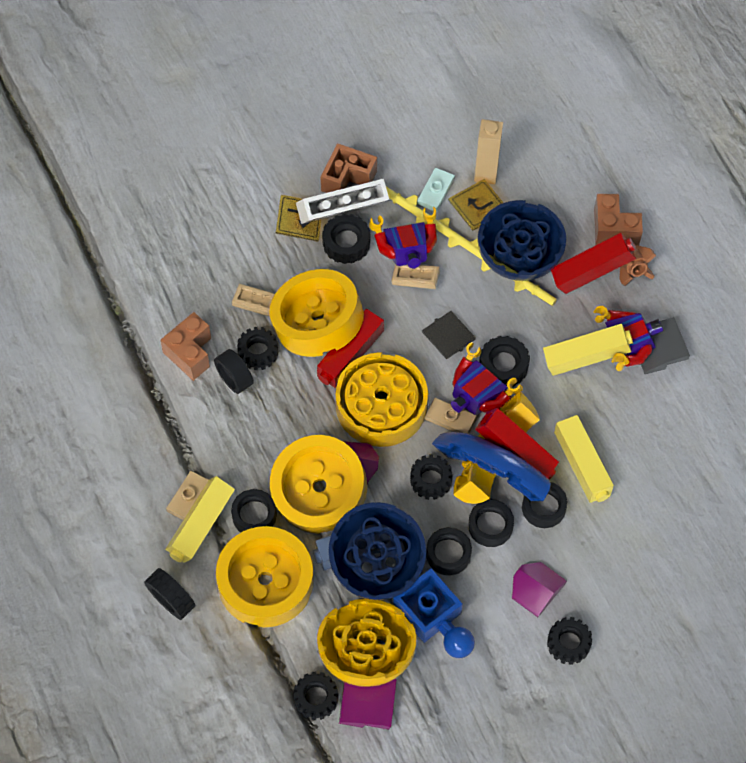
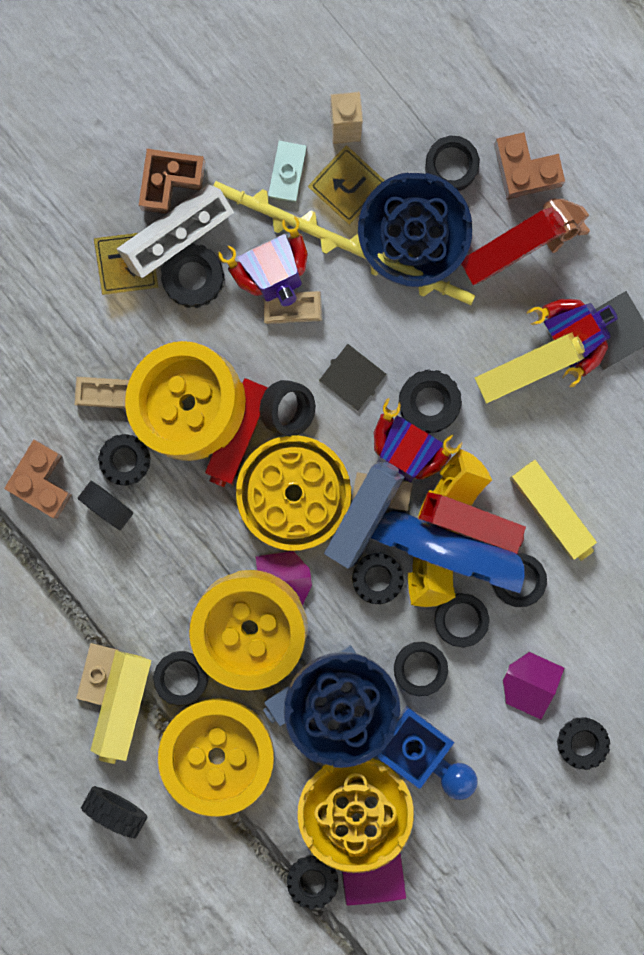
camera: 15 degrees left, 25 degrees up
(407, 332) = (270, 404): none -> black tyre
(433, 419) = (364, 514): none -> sand blue brick
(568, 197) = (462, 144): none -> black tyre

